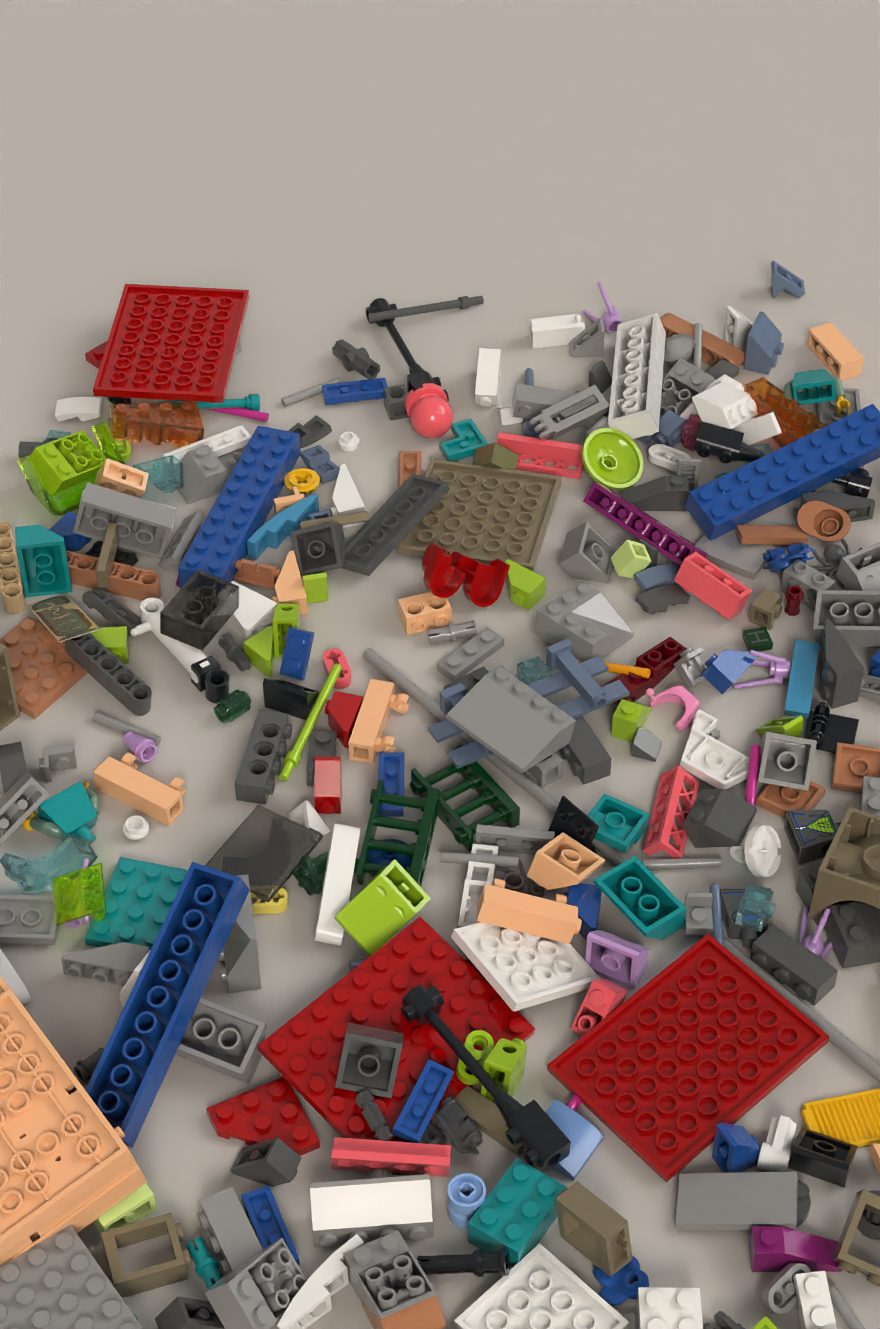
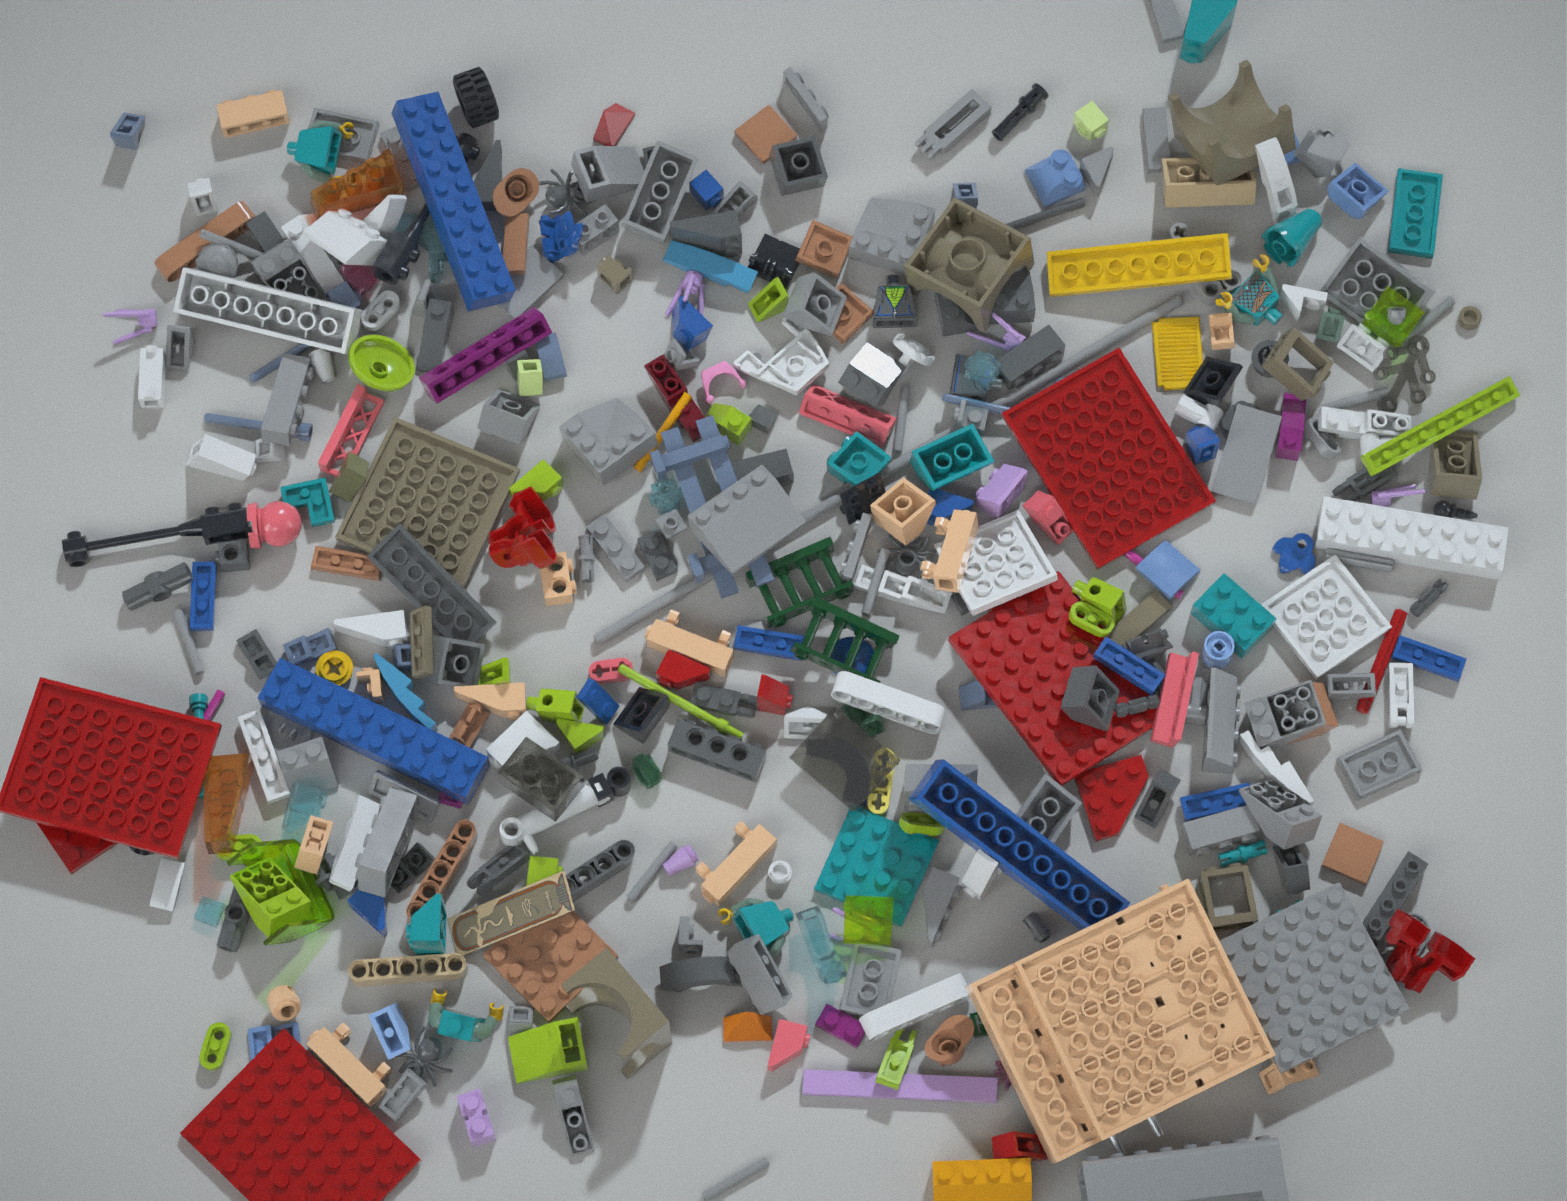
camera: 80 degrees left, 25 degrees up
(107, 555) = (435, 863): dark tan tile -> none
(348, 441) = (280, 620): white plate -> none
(382, 907) = (923, 667): lime slope -> none
(461, 303) = (75, 463): dark grey bar -> none
(476, 1263) = (1274, 650): black pin -> none
(526, 1124) = (1165, 590): black bar -> none
(574, 410) = (311, 382): light grey hinge -> none
(594, 1228) = (1263, 560): dark tan window -> none
(600, 377) = (239, 350): dark grey slope -> none
(661, 597) = (581, 361): dark grey slope -> none
(712, 585) = (583, 312): coral brick -> none
(752, 774) = (827, 339): dark pink bar -> none
(757, 639) = (647, 292): dark green tile -> none
(763, 345) = (235, 180): sand blue slope -> none
(794, 596) = (610, 246): dark red pin -> none

